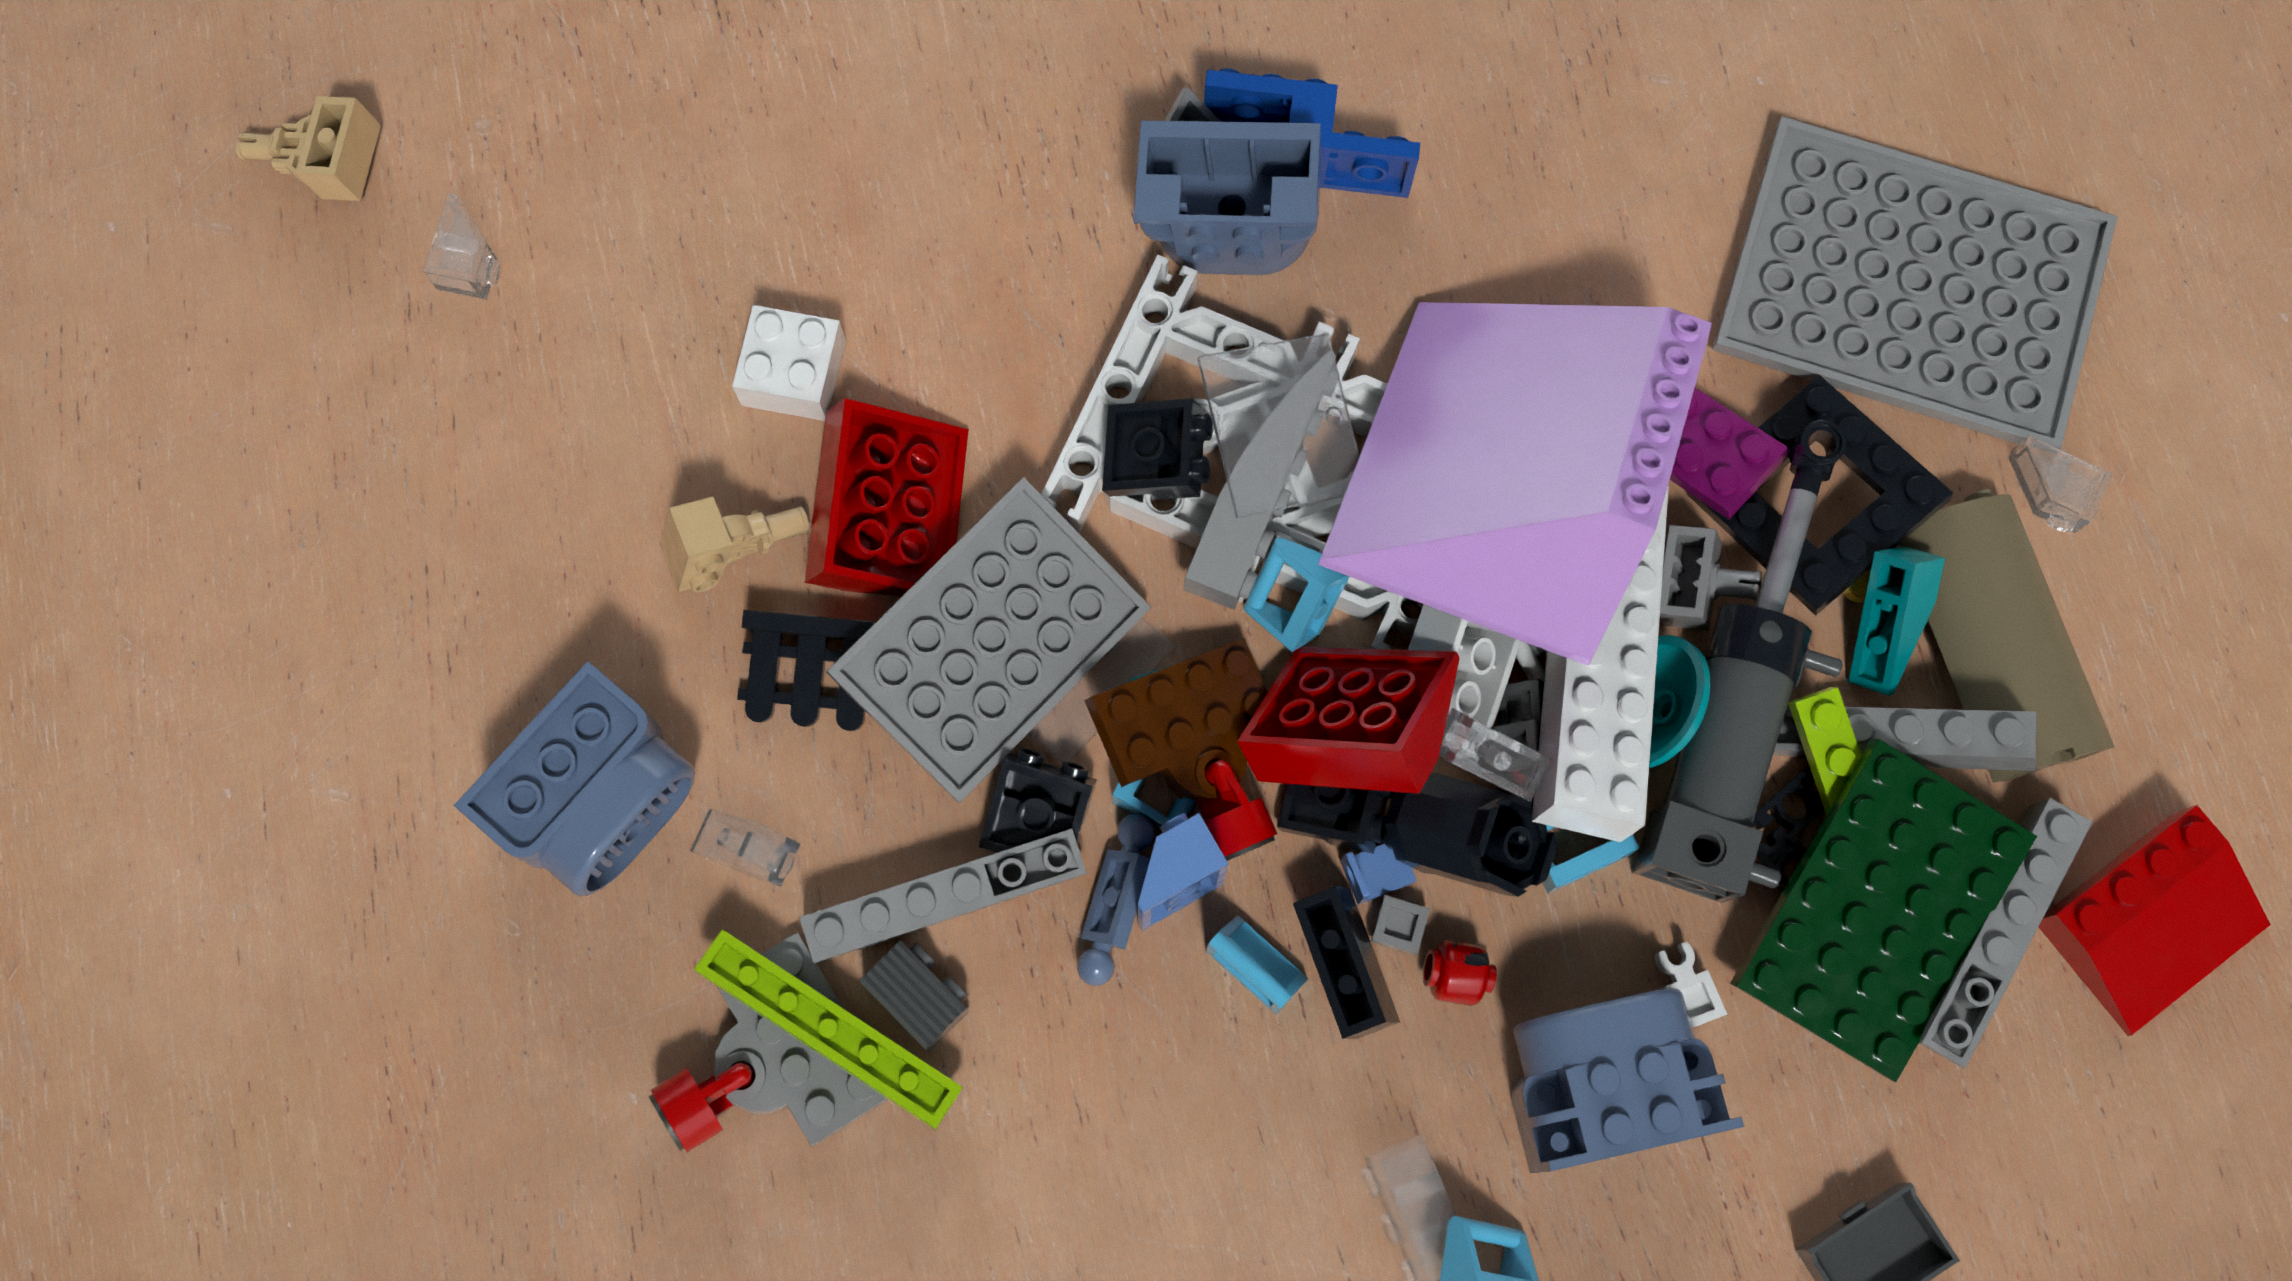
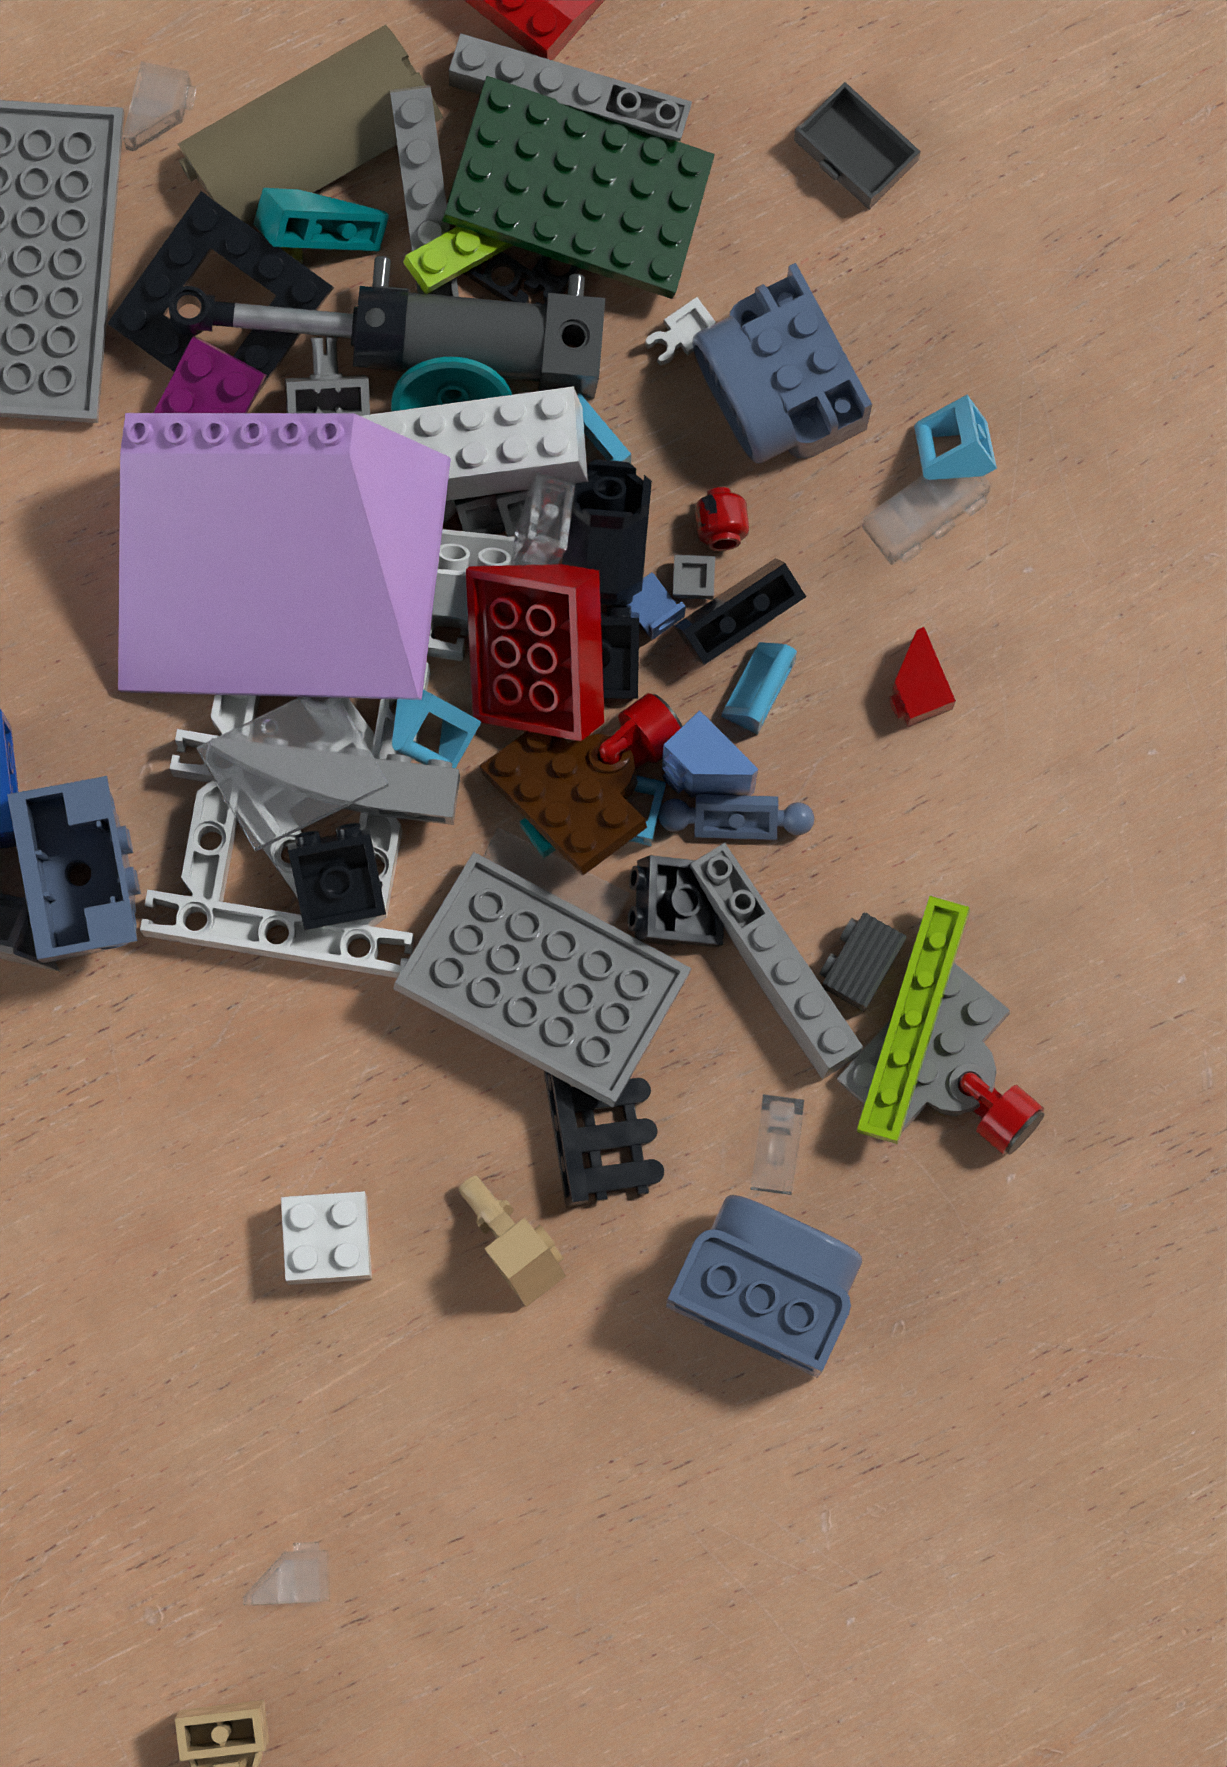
camera: 105 degrees left, 5 degrees up
(883, 498) = (435, 1114): red slope -> none
(1214, 1148) = (921, 684): none -> red slope

